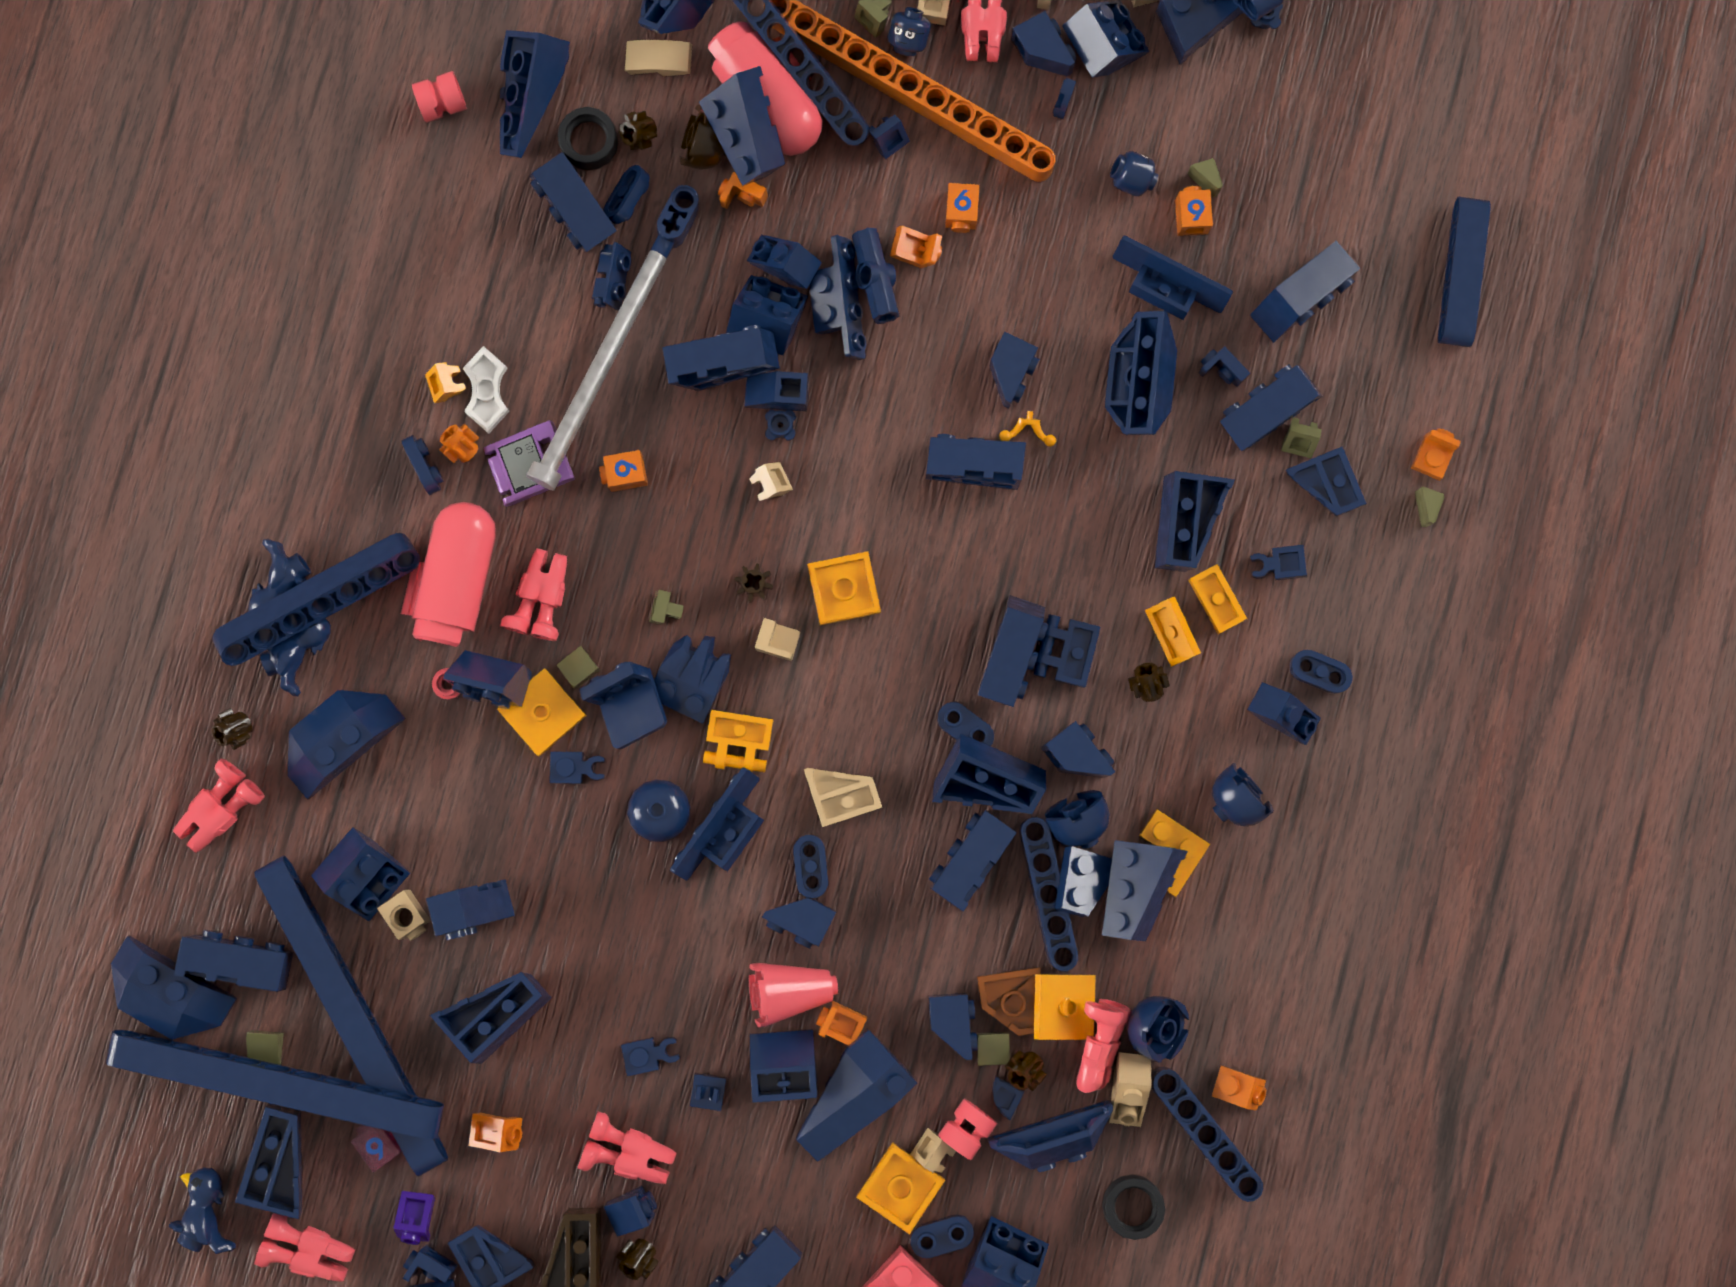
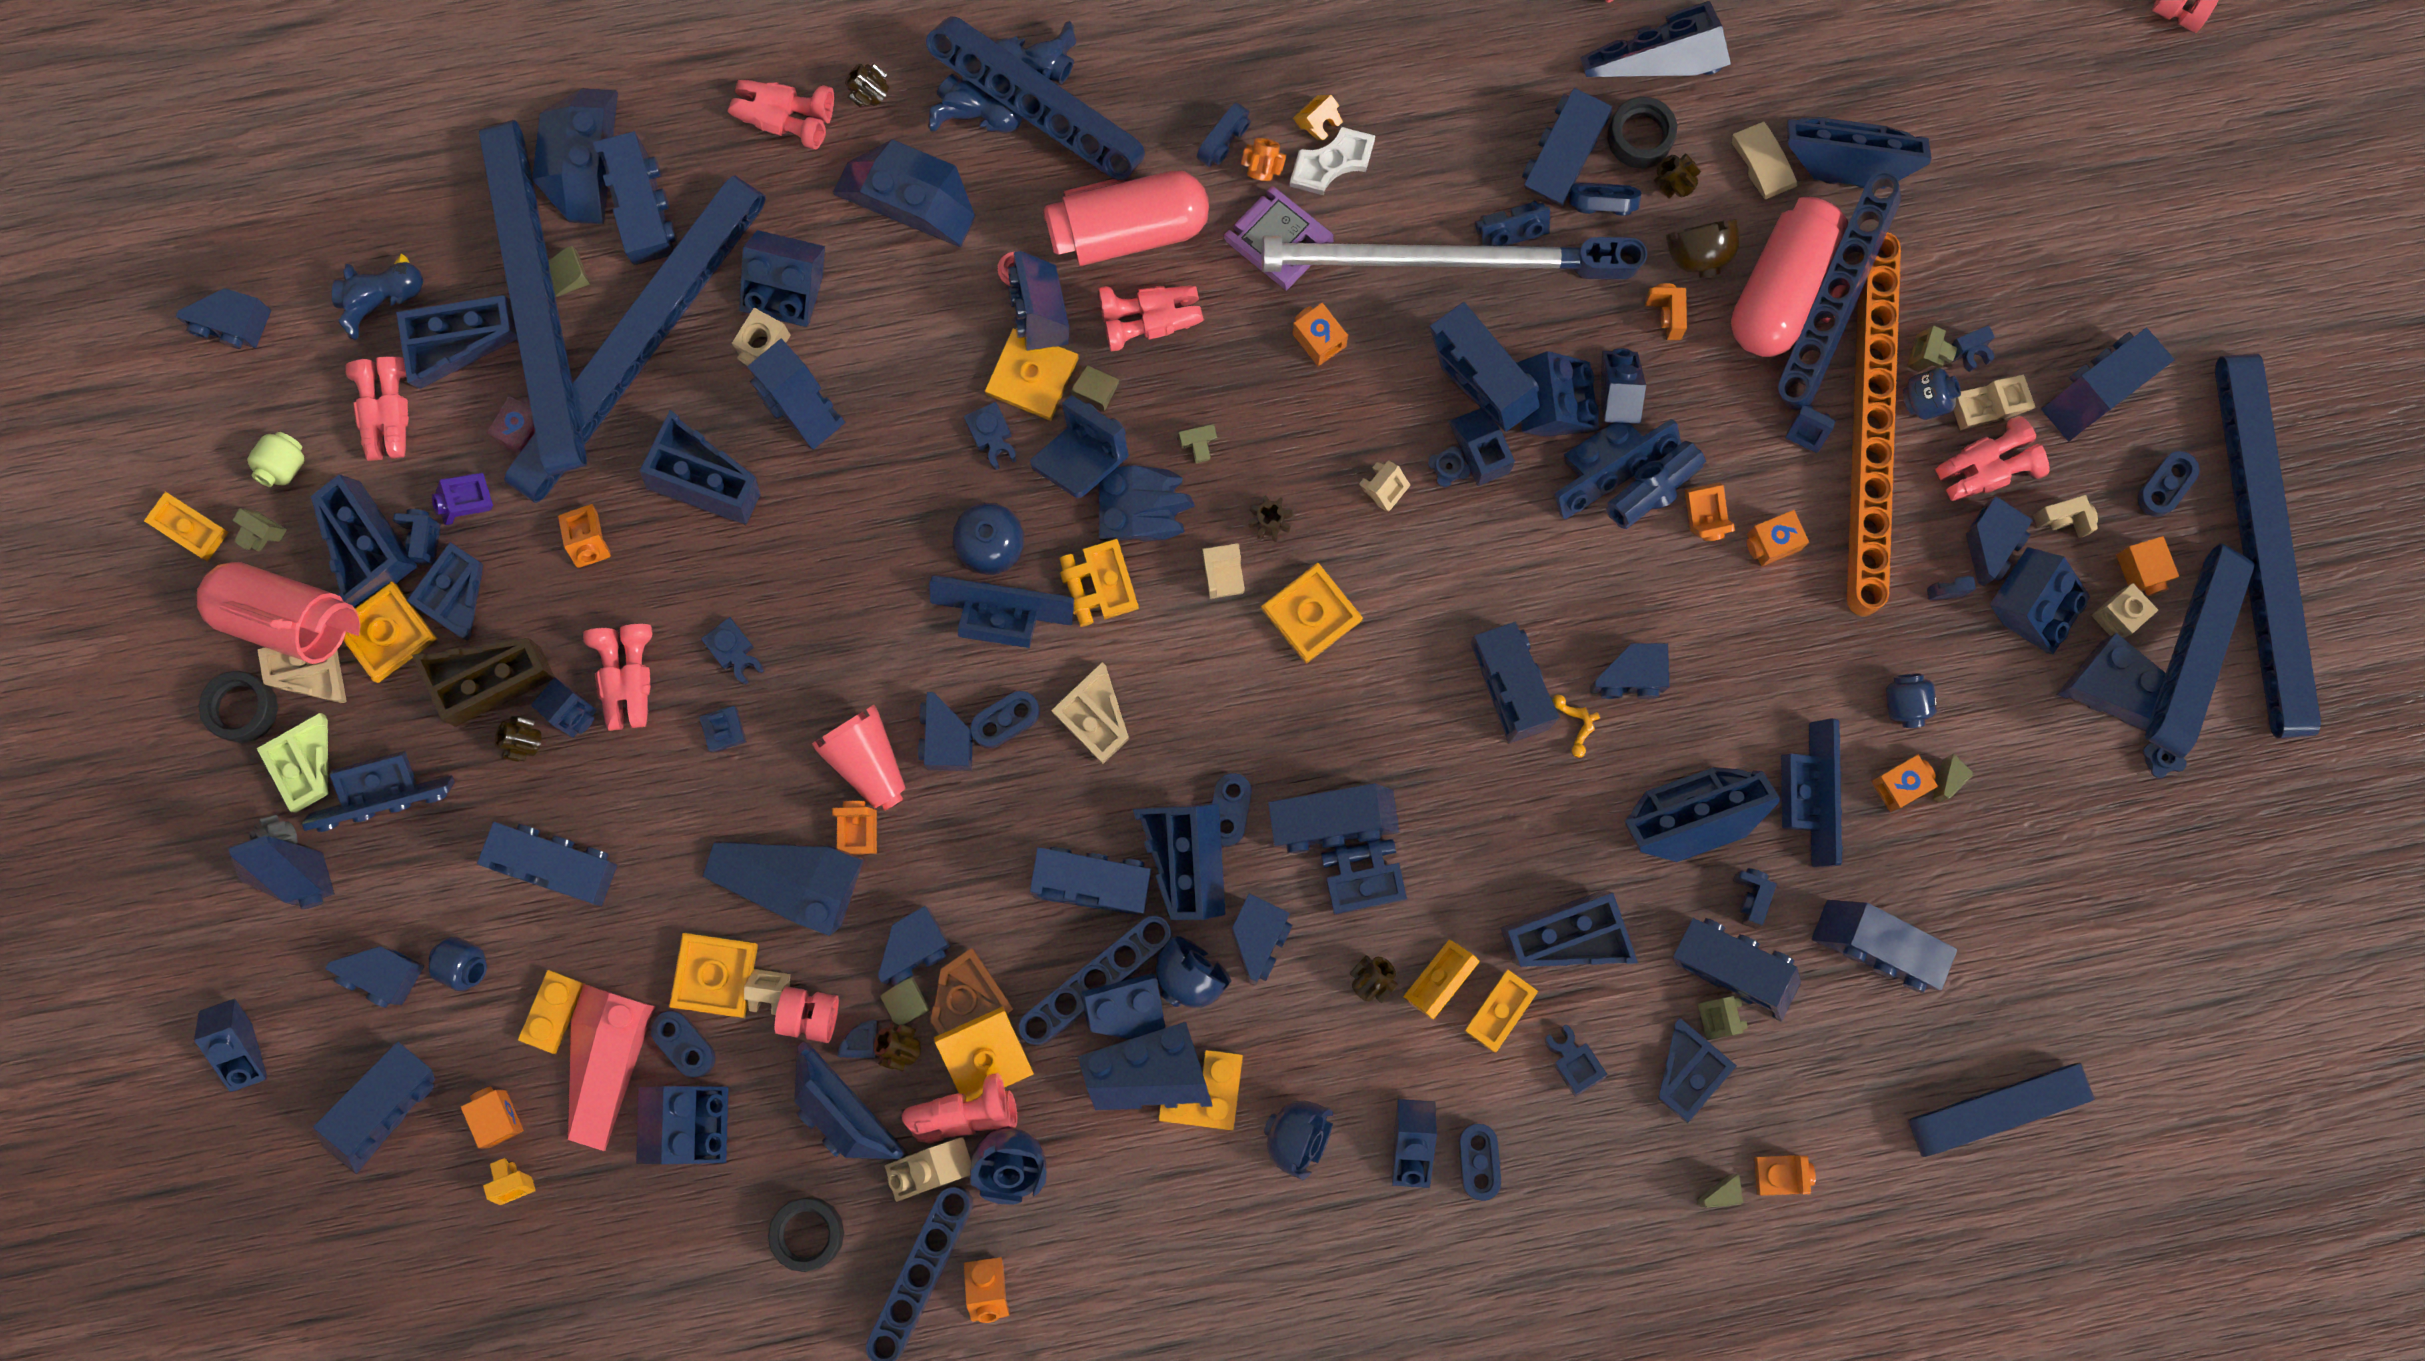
camera: 65 degrees right, 5 degrees down
(743, 126) = (1736, 269): dark blue wedge -> none
(783, 1066) = (783, 790): dark blue slope -> none

